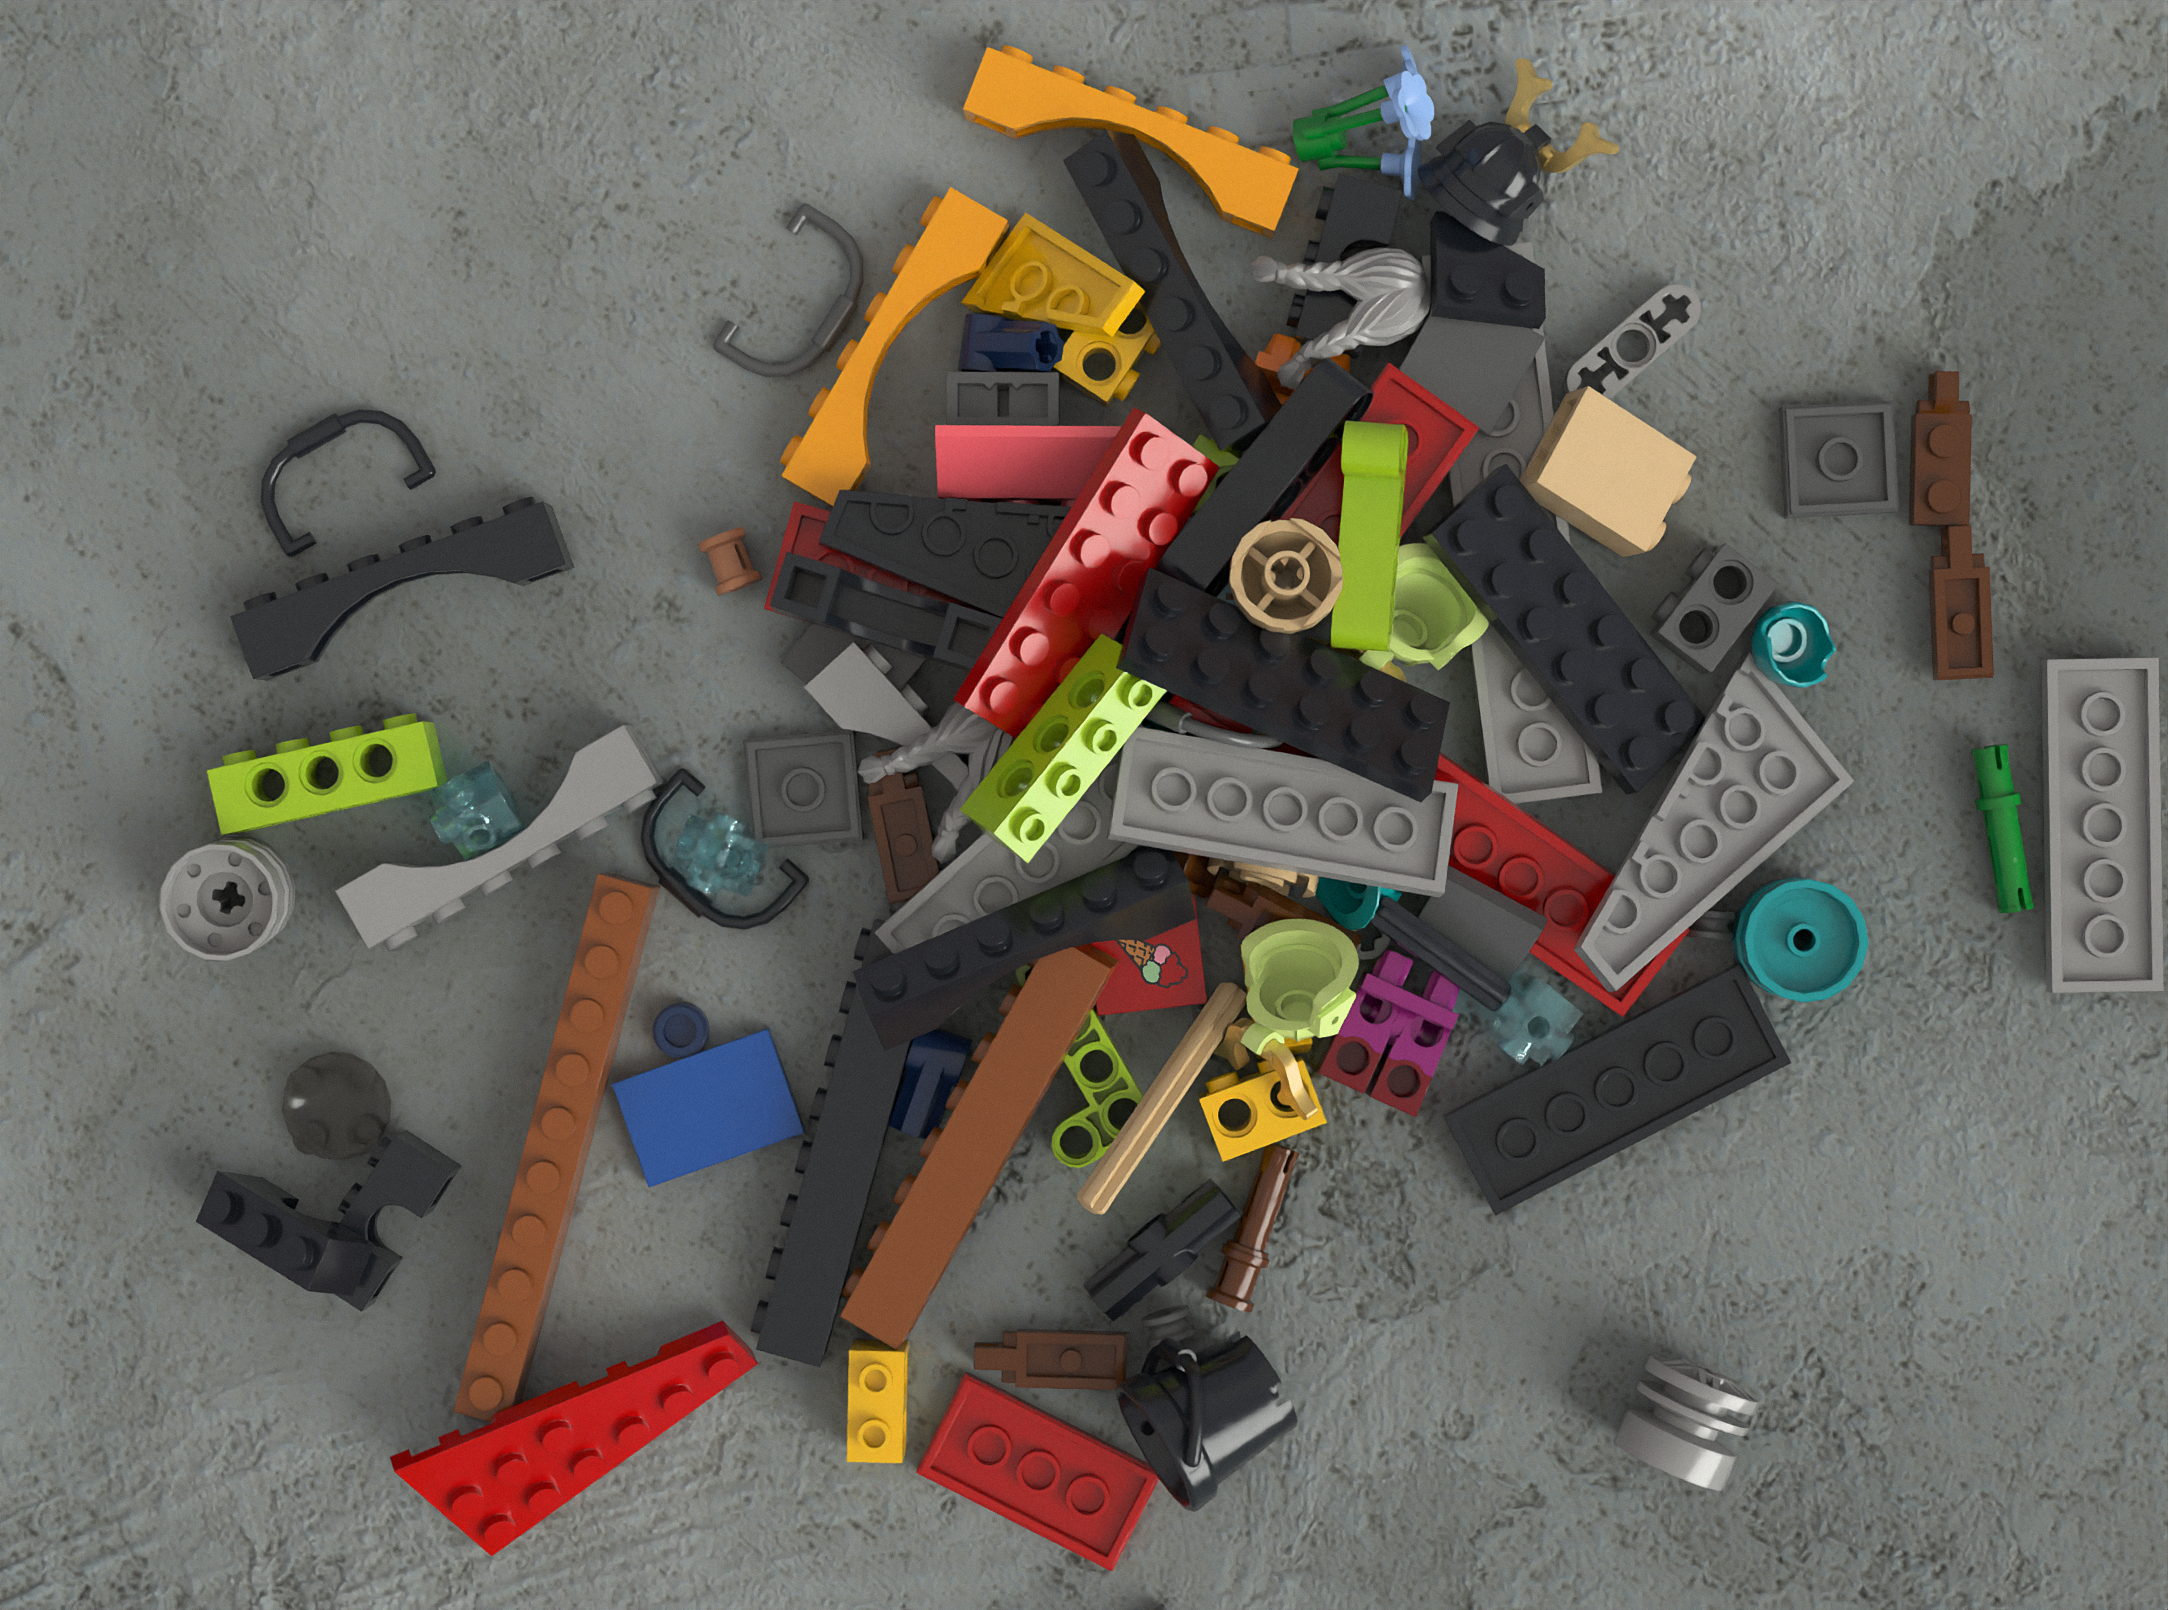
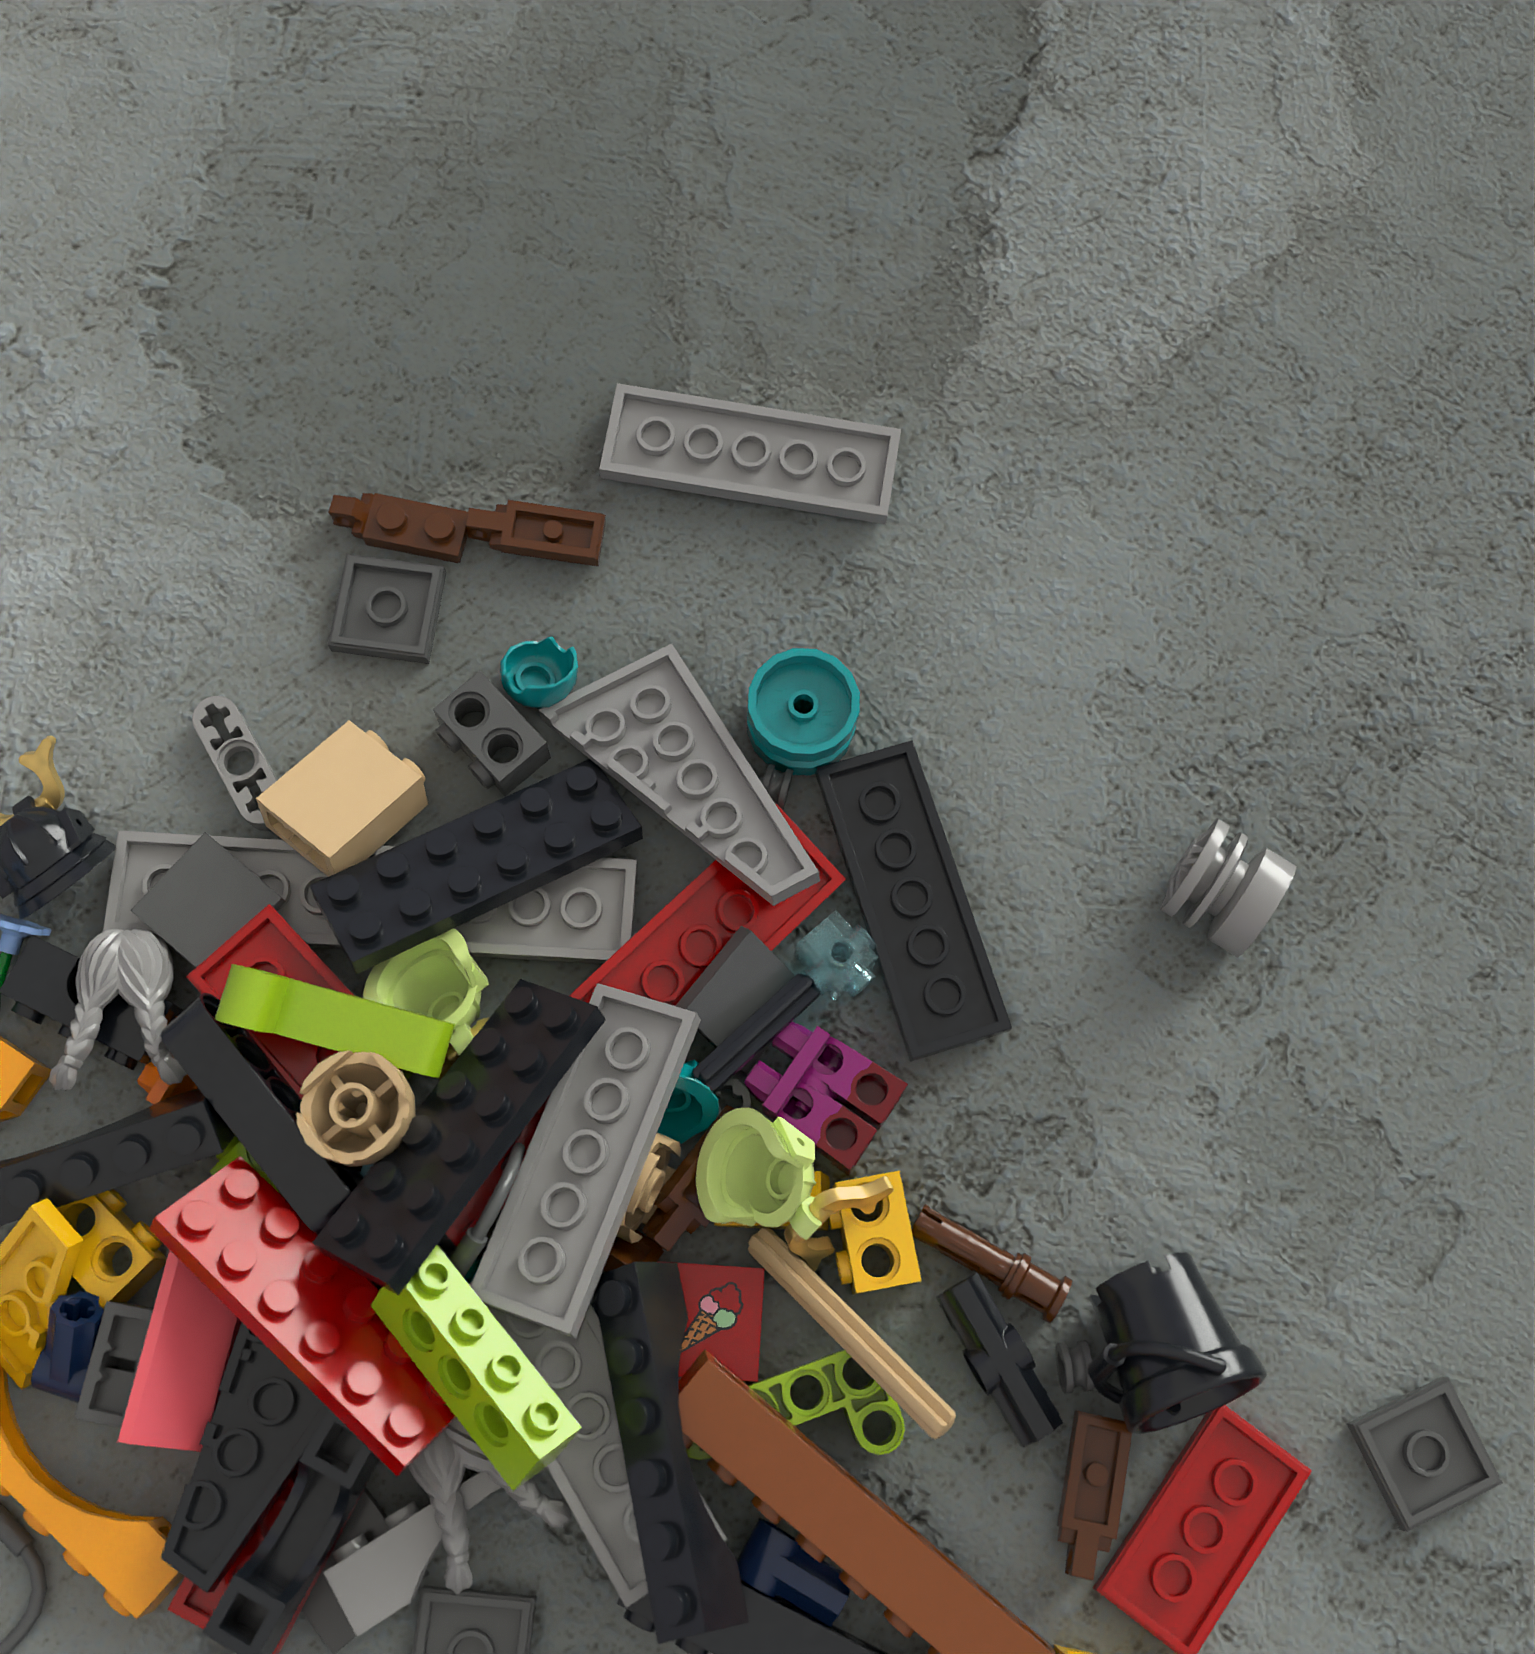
camera: 85 degrees left, 15 degrees down
(902, 833) = (534, 1554): reddish brown hinge -> none
(1482, 278) = (134, 878): black wing -> none
(2002, 827) = (737, 532): green pin -> none

